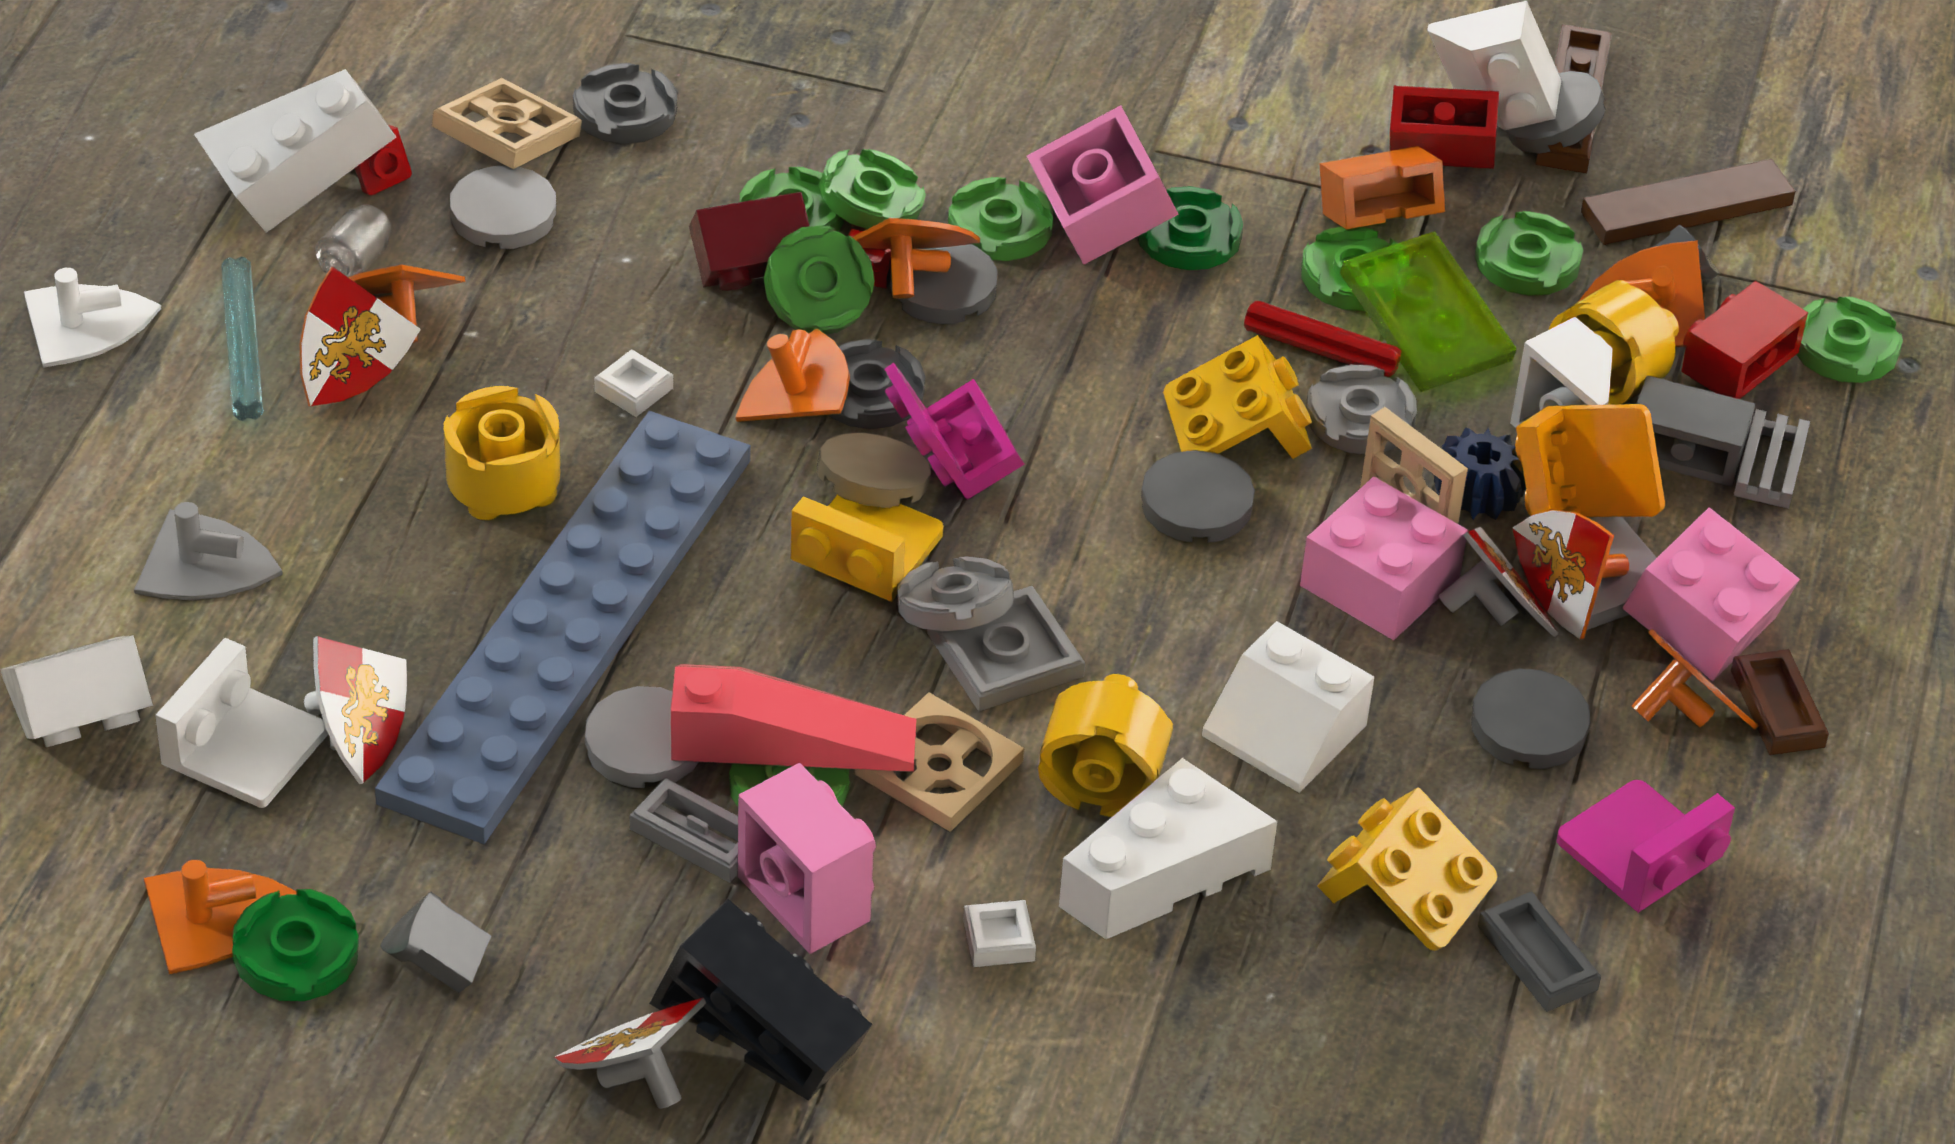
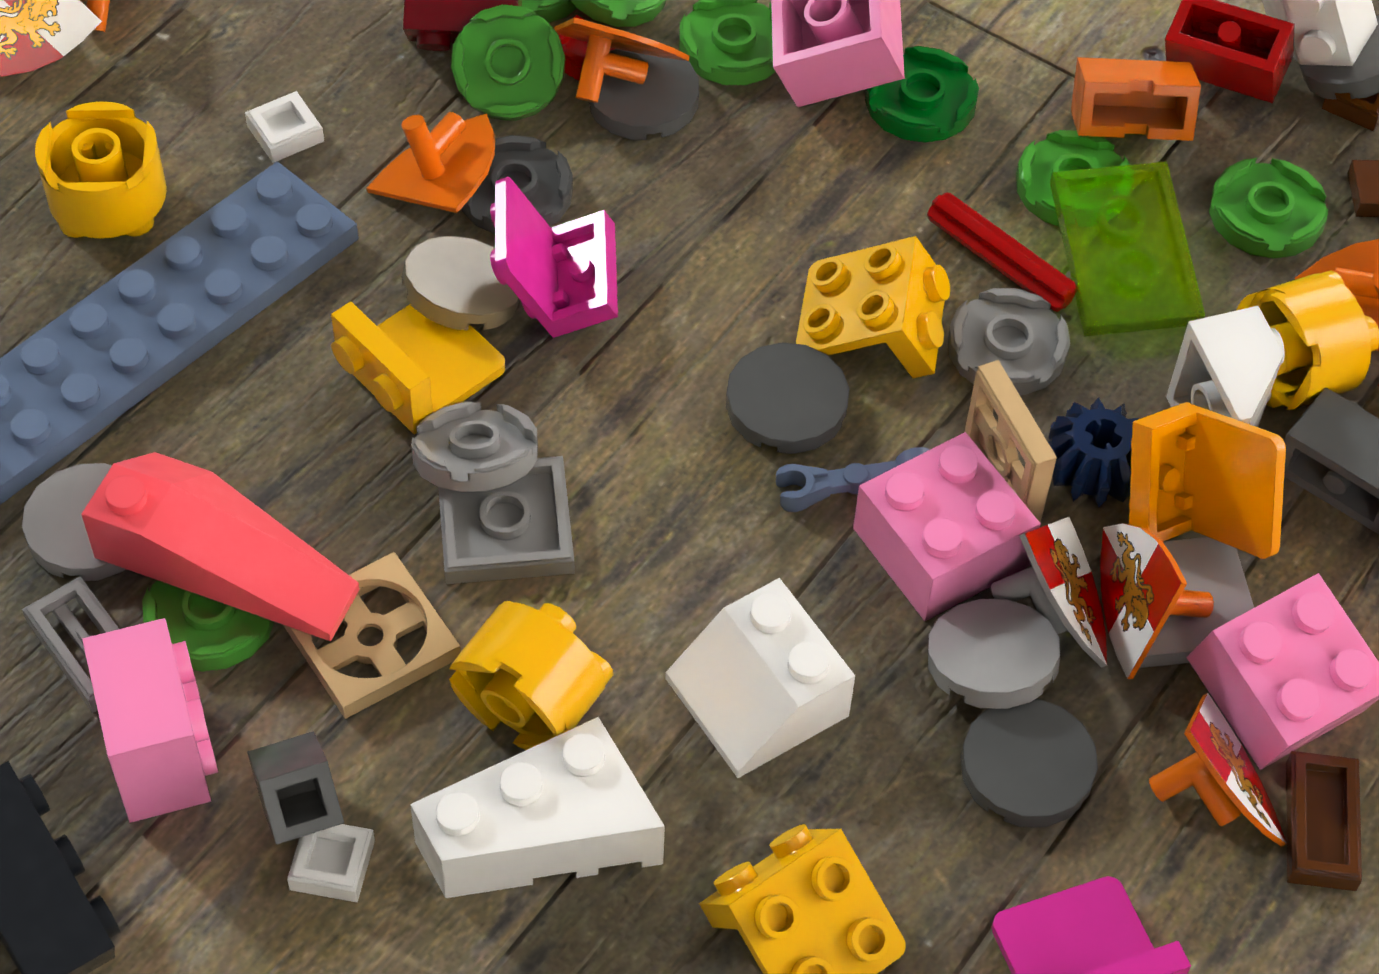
camera: 20 degrees right, 10 degrees up
(952, 878) = (295, 787): none -> dark grey brick
(1257, 555) = (819, 483): none -> sand blue piece
(1466, 643) = (993, 653): none -> light grey tile

